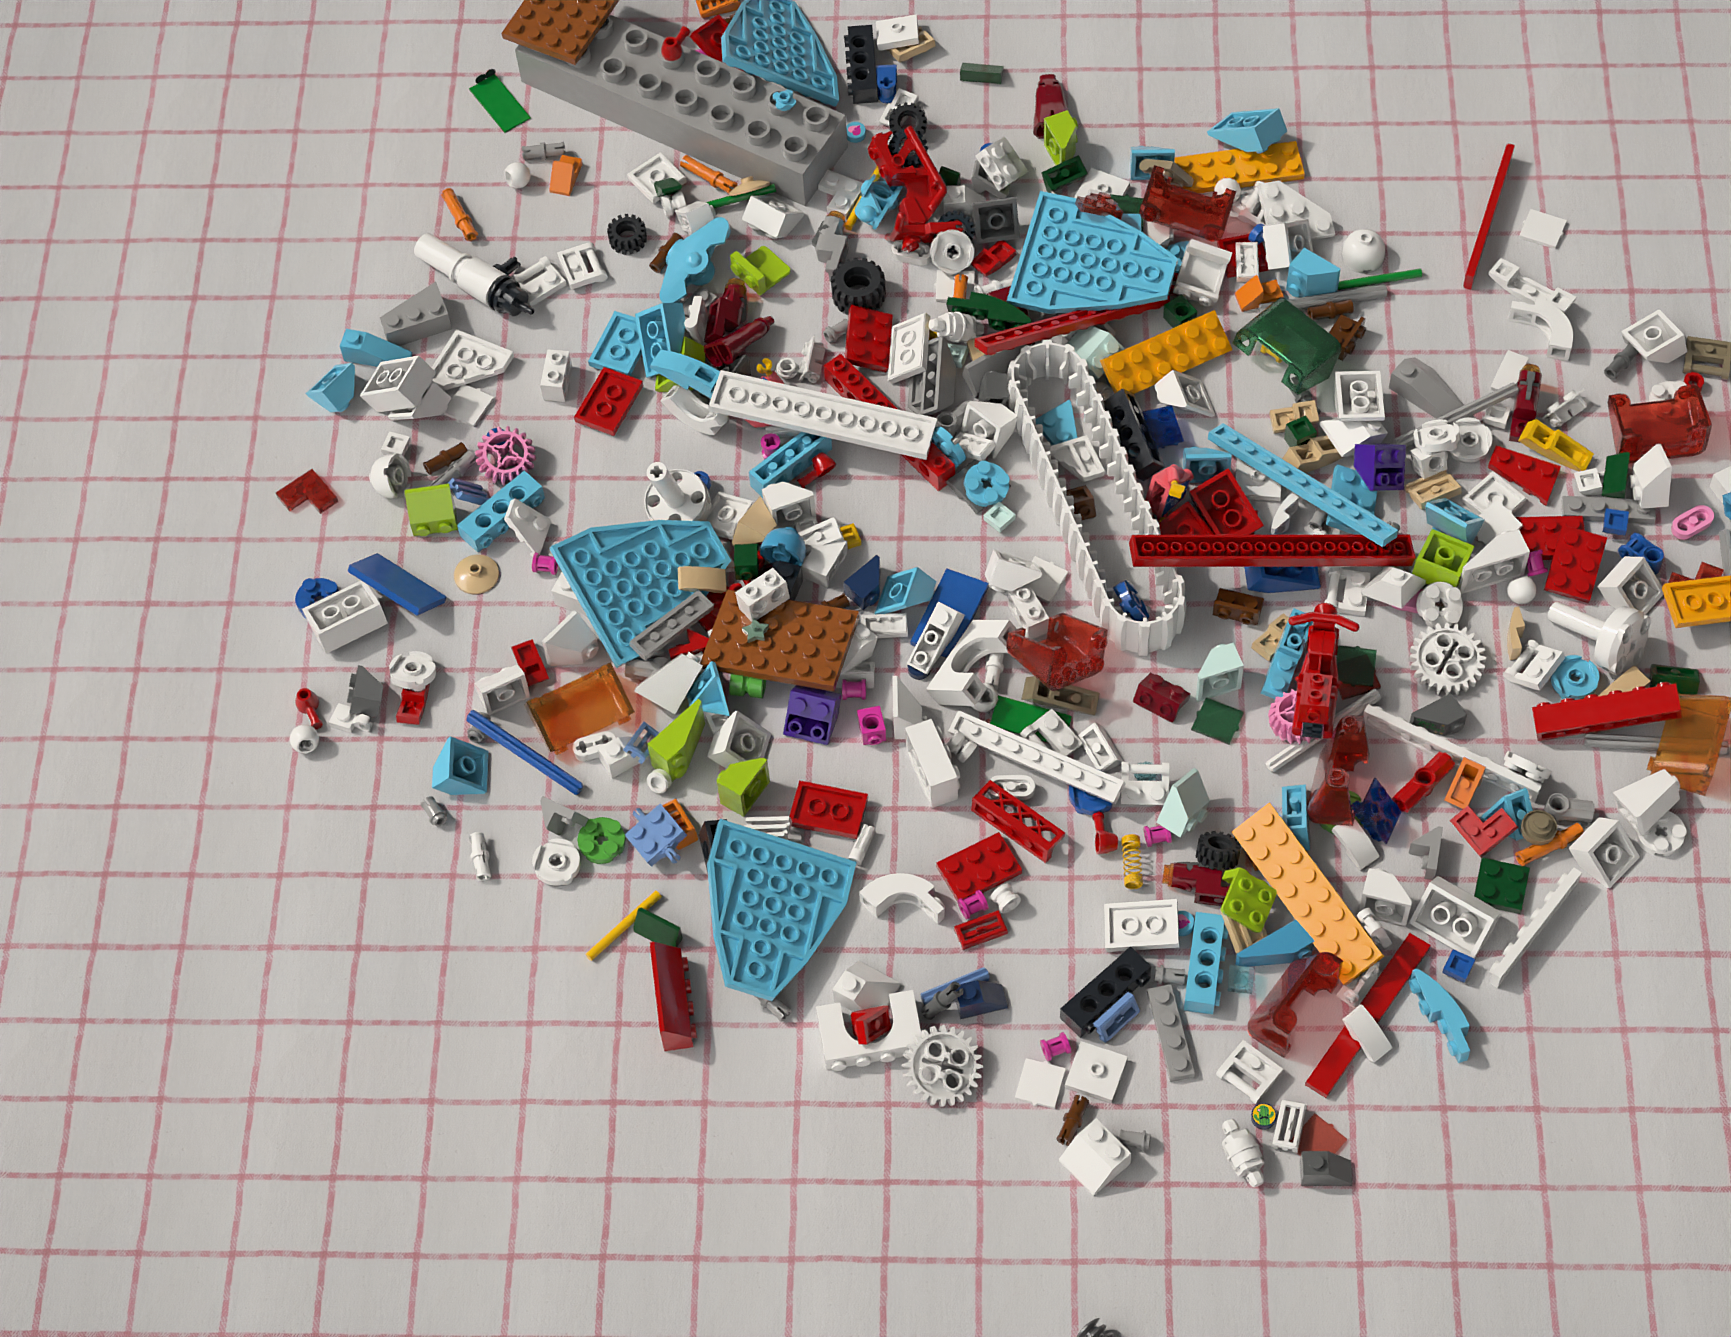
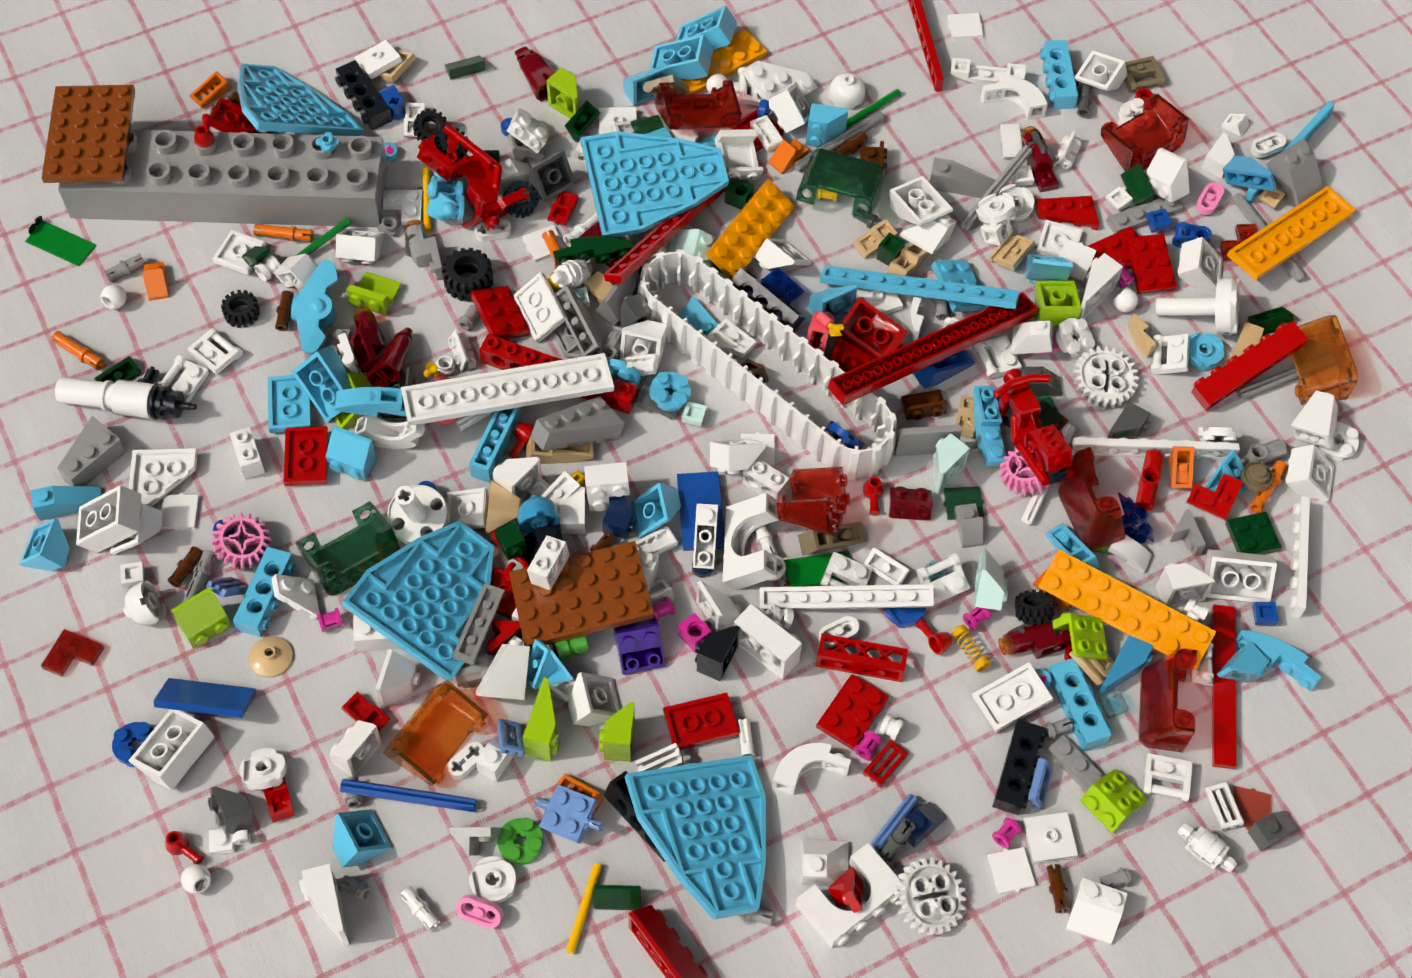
camera: 35 degrees left, 0 degrees up
(403, 805) = (322, 891): none -> white slope
(487, 250) = (122, 370): none -> dark green slope
(532, 886) = (480, 913): none -> bright pink plate
(580, 511) = (347, 558): none -> clear green windscreen
(648, 416) = (350, 453): none -> medium azure slope
(659, 781) = (542, 765): white tile -> none
(701, 578) = (481, 572): tan slope -> none
(748, 184) = (326, 228): tan dish -> none
(755, 631) = (558, 596): sand green piece -> none
(770, 444) = (470, 434): dark pink bush -> none
(816, 204) = (388, 221): none -> light grey plate
(847, 496) = (571, 453): none -> tan slope
(865, 544) = (605, 482): none -> white brick
(873, 478) = (578, 424): none -> light grey wedge
(880, 751) = (717, 652): none -> black slope
(940, 256) = (519, 215): white plate -> none
(1099, 204) = (632, 130): clear red plate -> none
(1130, 671) = (873, 493): none -> red bar
(1181, 1064) = (1113, 799): none -> lime bracket
(1204, 637) = (923, 439): none -> light grey tile
(1206, 148) = (684, 58): none -> medium azure slope
(1206, 744) = (969, 525): none -> light grey slope
(1263, 1116) = (1199, 808): tile -> none
(1367, 1032) = (1236, 699): white slope -> none
(1374, 635) = (1041, 388): none -> dark grey slope
(1381, 465) = (966, 247): dark purple slope -> none
(1398, 1003) = (1245, 664): none -> medium azure slope
(1555, 446) = (1079, 181): yellow slope -> none
(1610, 322) = (1059, 74): none -> medium azure brick

